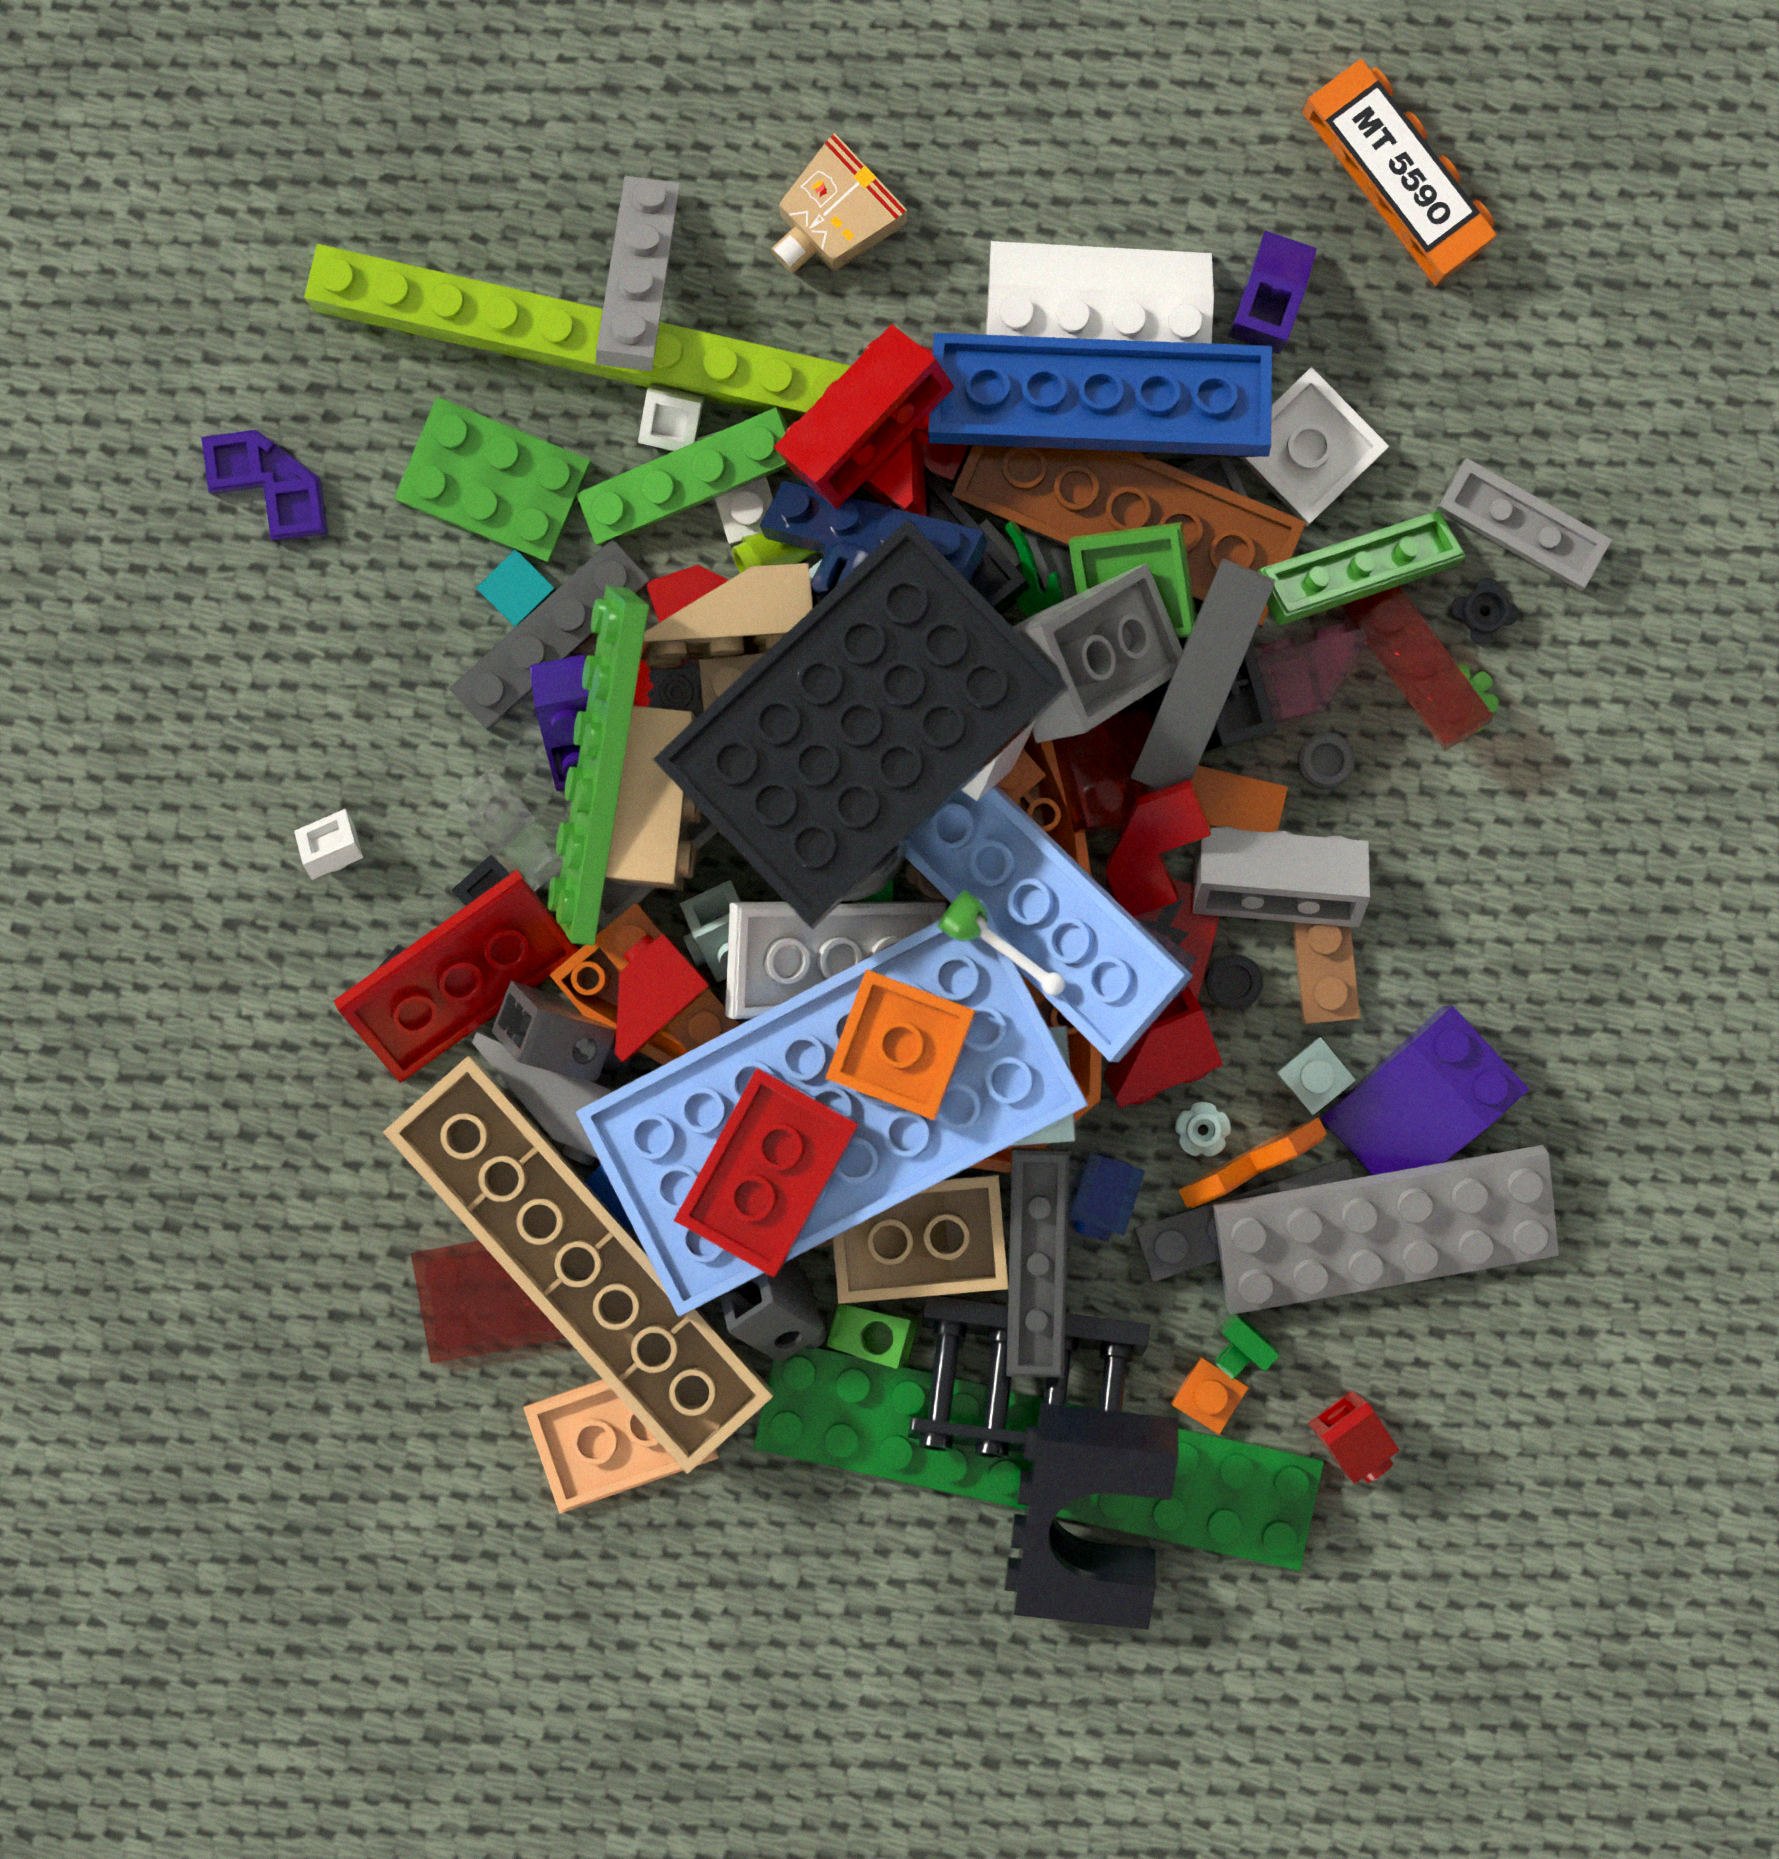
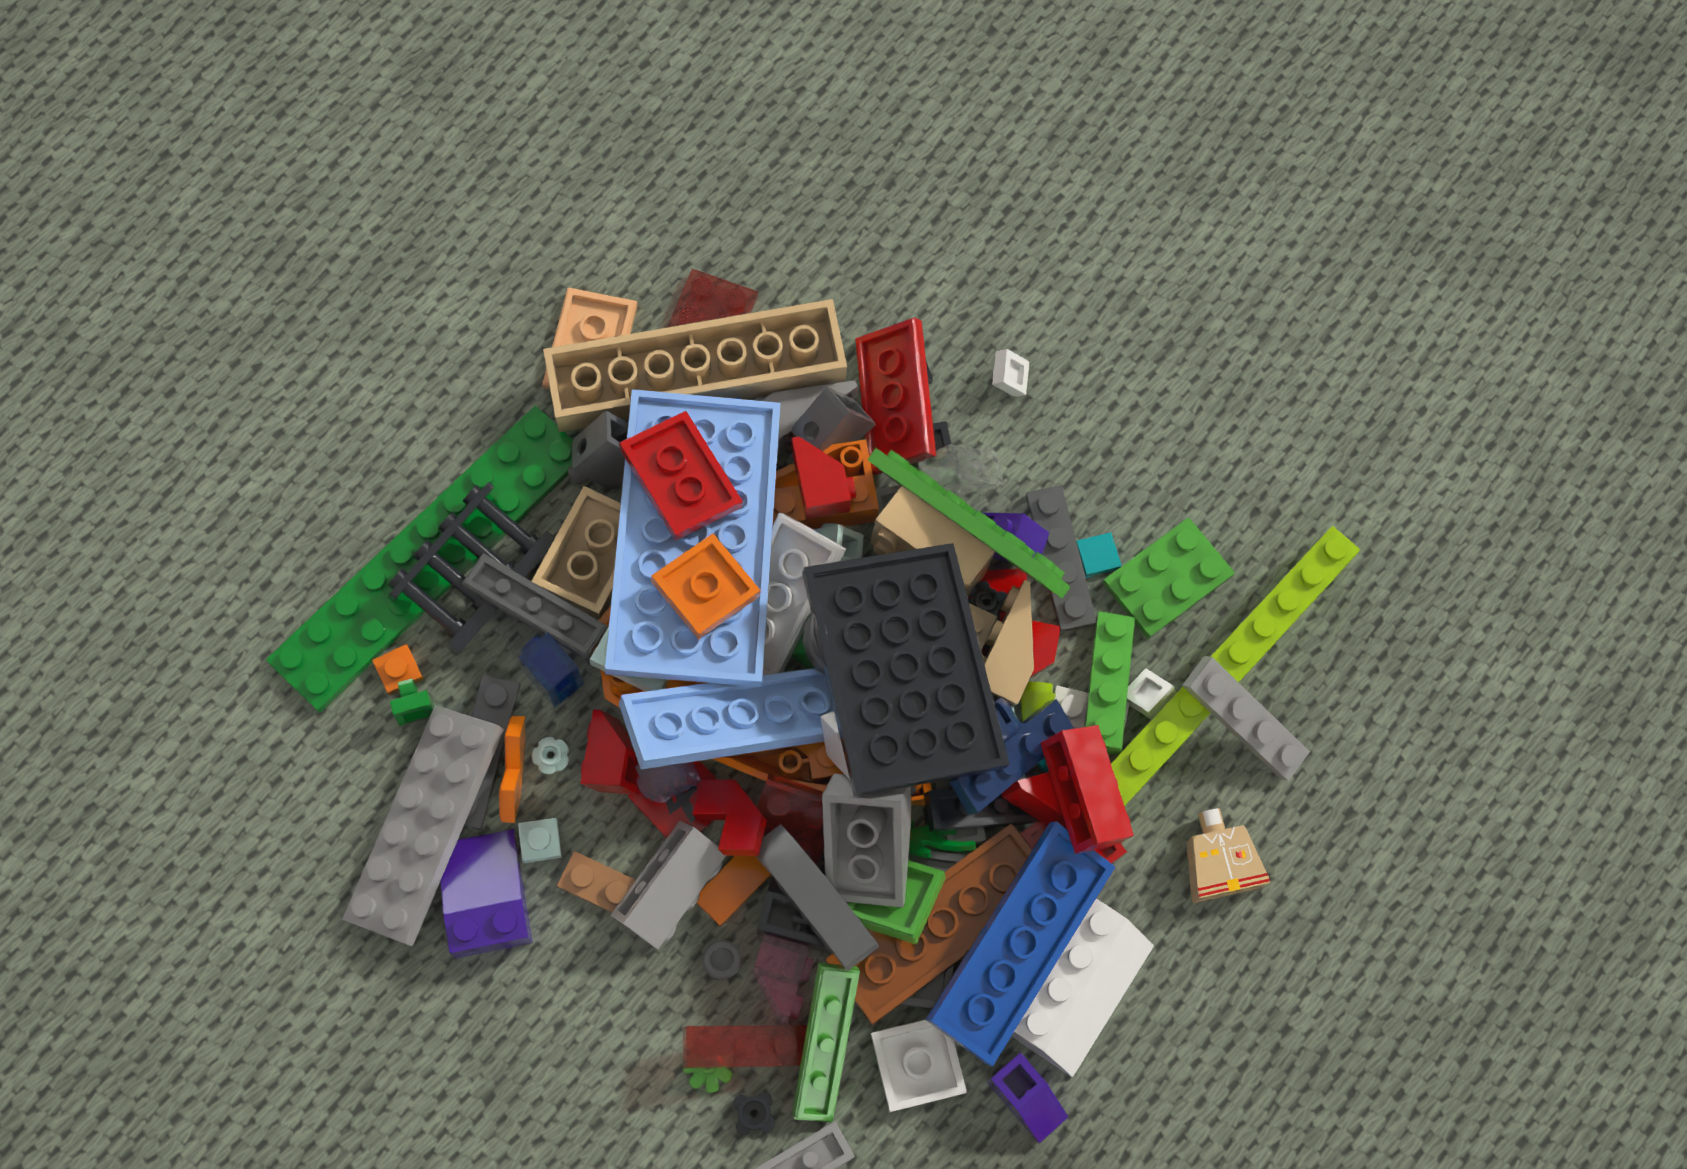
camera: 115 degrees right, 15 degrees down
(290, 489) = (1227, 467): dark purple tile -> none
(873, 1334) = (552, 503): bright green leg -> none
(968, 920) = (752, 664): hinge -> none
(1077, 1456) = (404, 569): black arch -> none
(1234, 982) = (624, 826): black tile -> none
(1355, 1438) = (317, 731): red slope -> none

